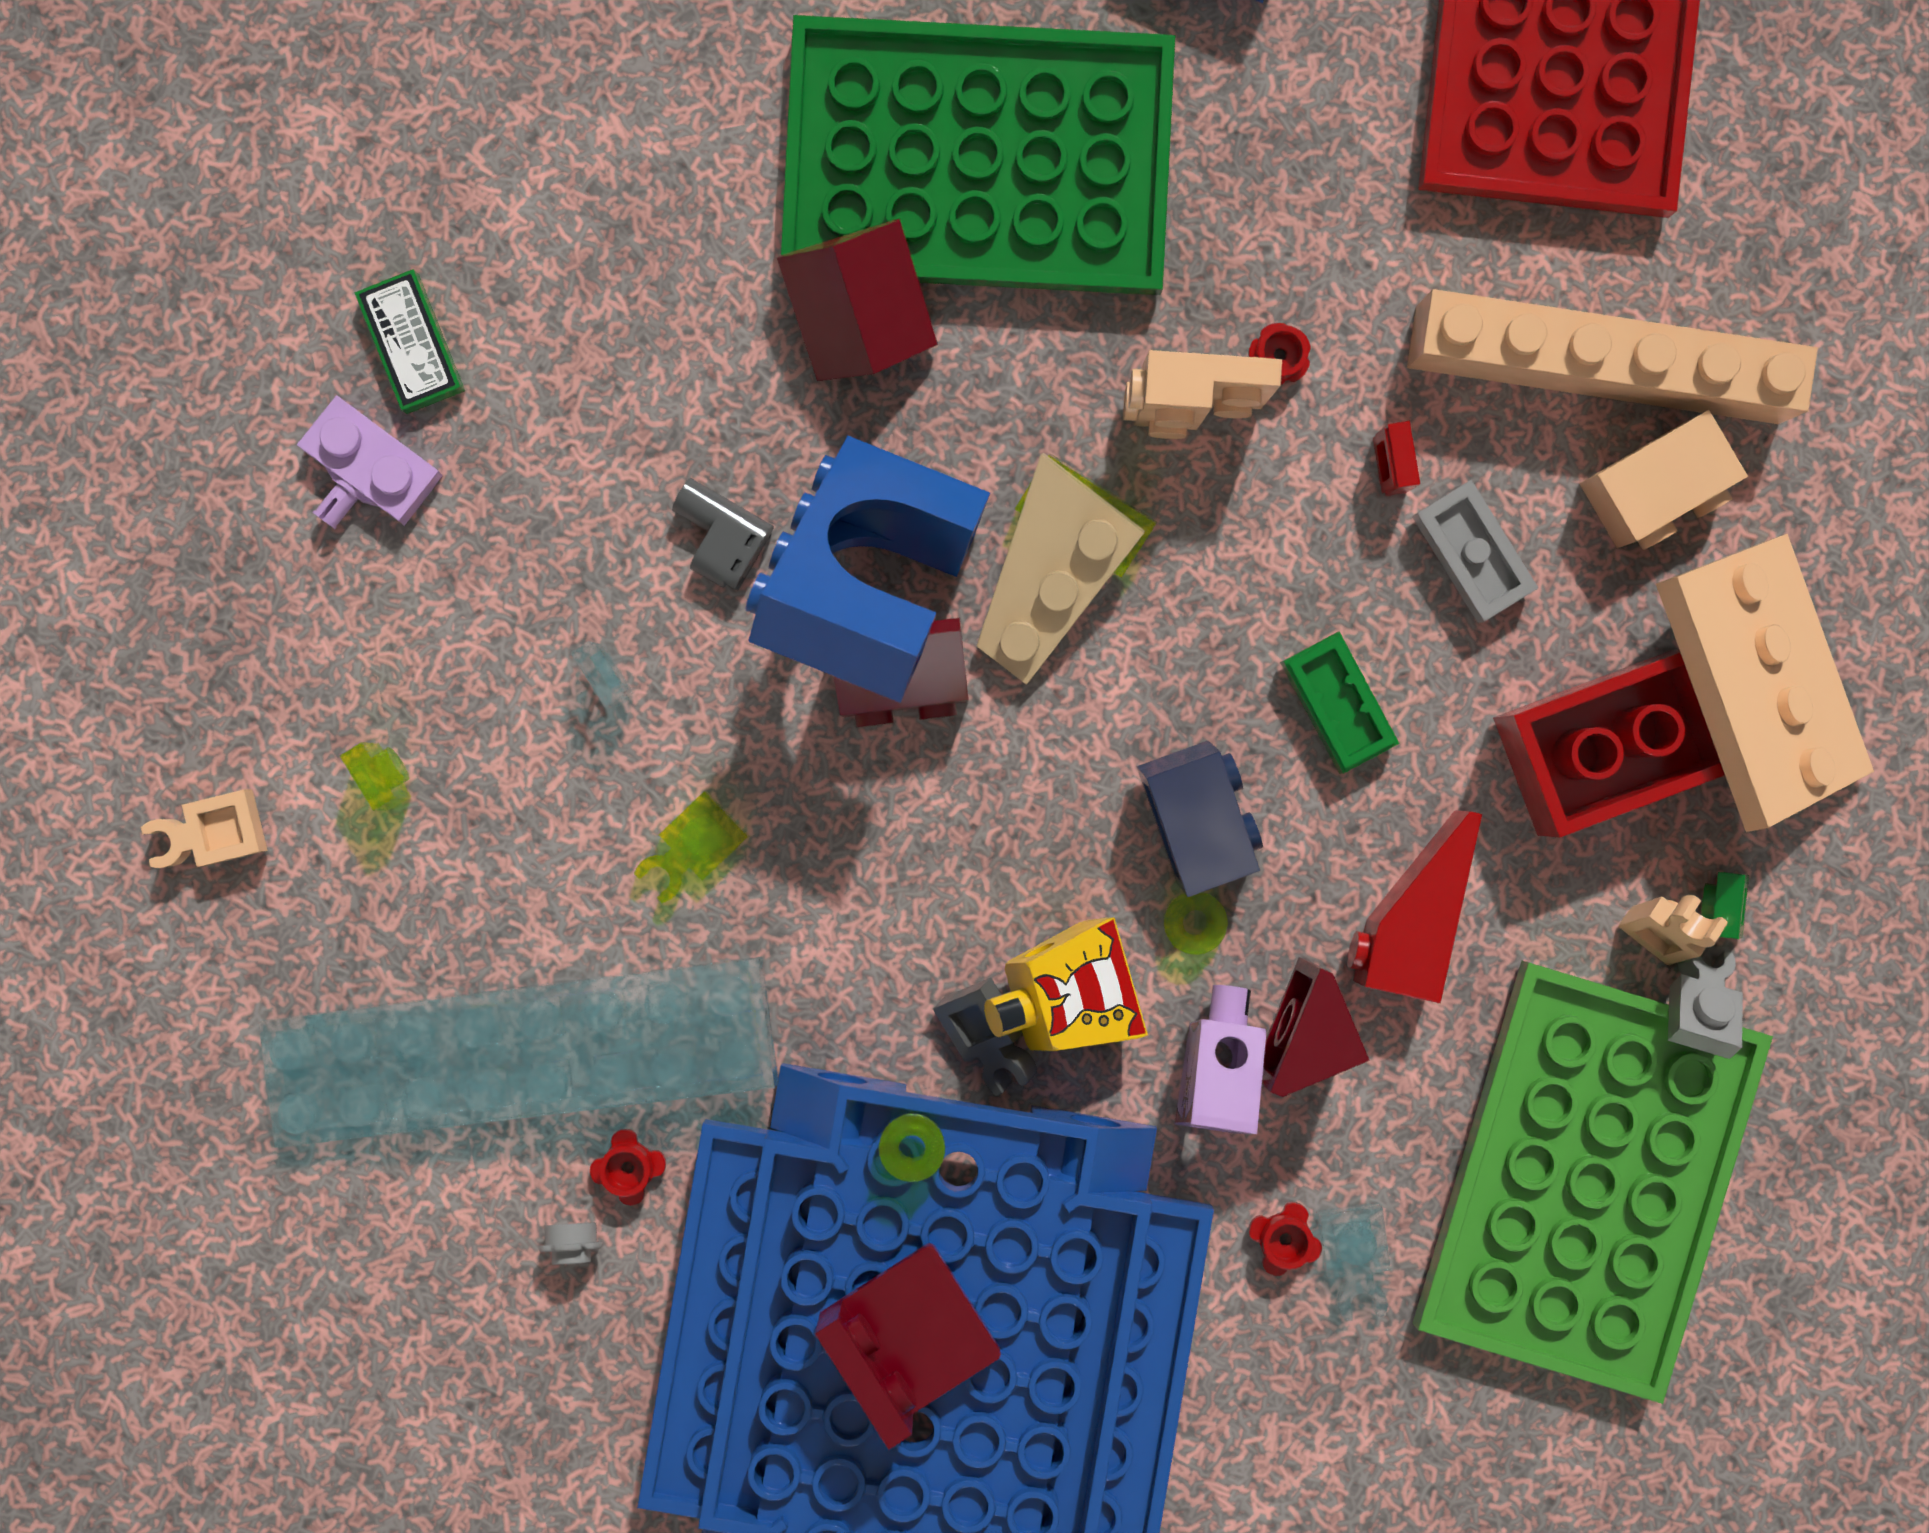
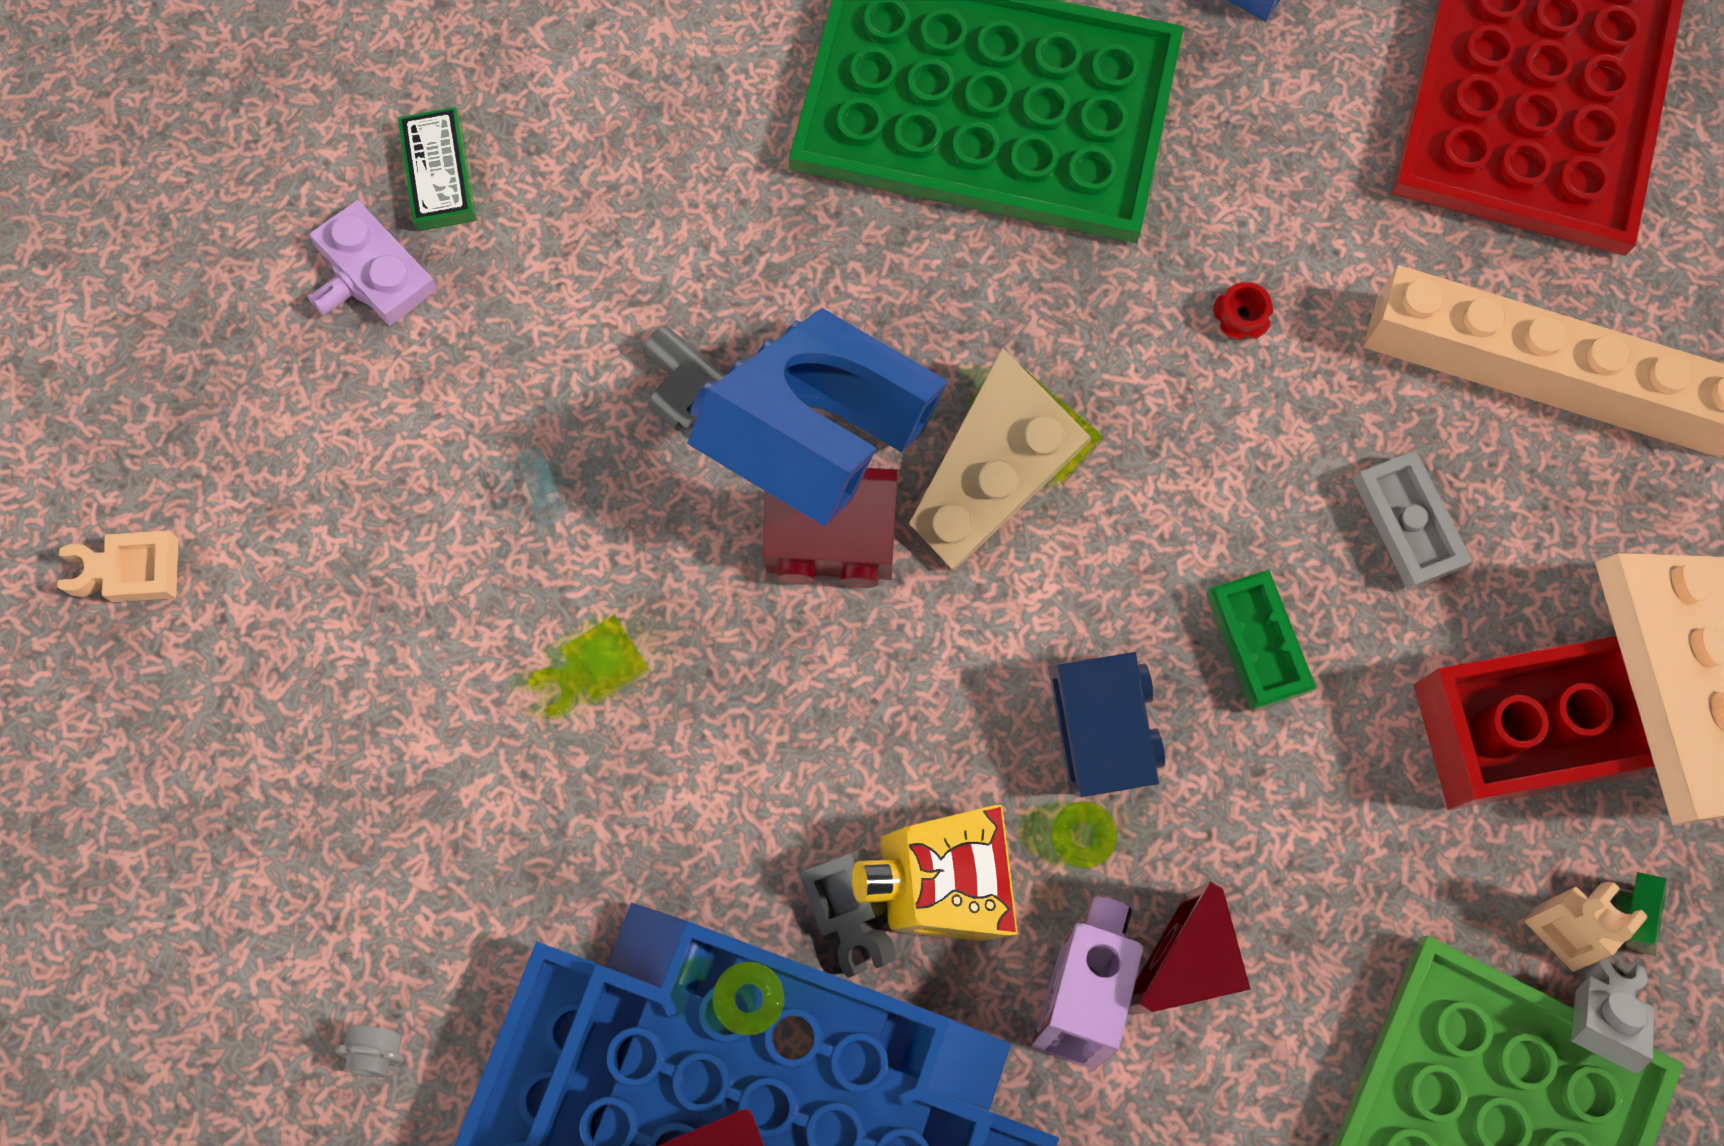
camera: 15 degrees right, 15 degrees down
(378, 775) = (301, 541): clear neon green plate -> none
(519, 1052) = (369, 838): clear light blue plate -> none
(611, 1175) = (429, 983): red plate -> none
(858, 302) = (854, 193): dark red slope -> none
(1180, 388) = (1162, 310): light nougat plate -> none
(1396, 458) = (1344, 419): red tile -> none
(1416, 923) = (1311, 879): red slope -> none
(1664, 480) = (1605, 483): light nougat brick -> none

